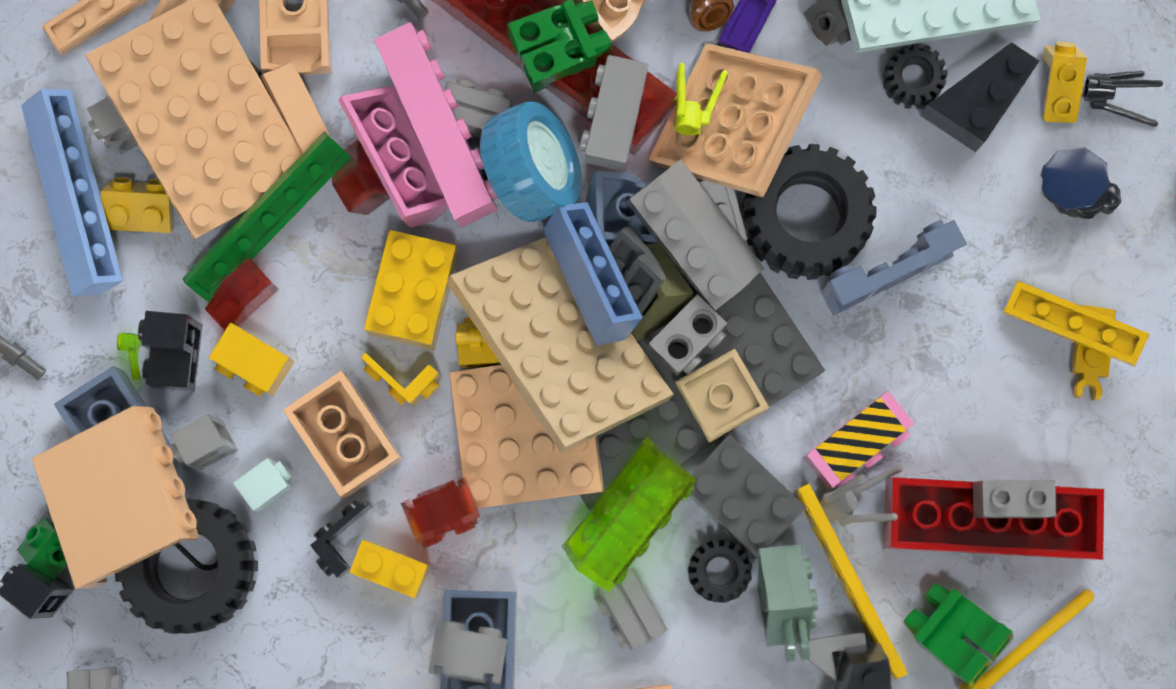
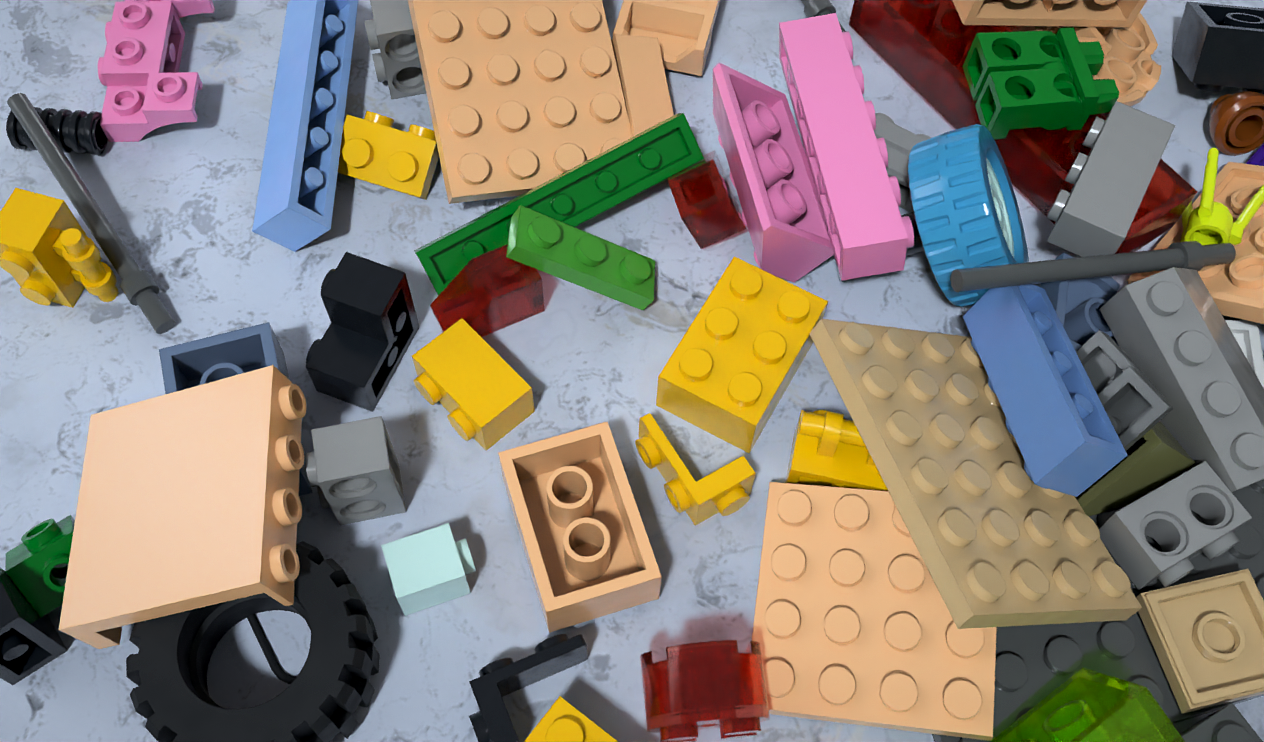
camera: 15 degrees right, 20 degrees down
(130, 343) = (309, 321): clear neon green hand -> none
(292, 256) = (581, 258): none -> bright green plate
(670, 153) = (1179, 254): none -> dark grey bar

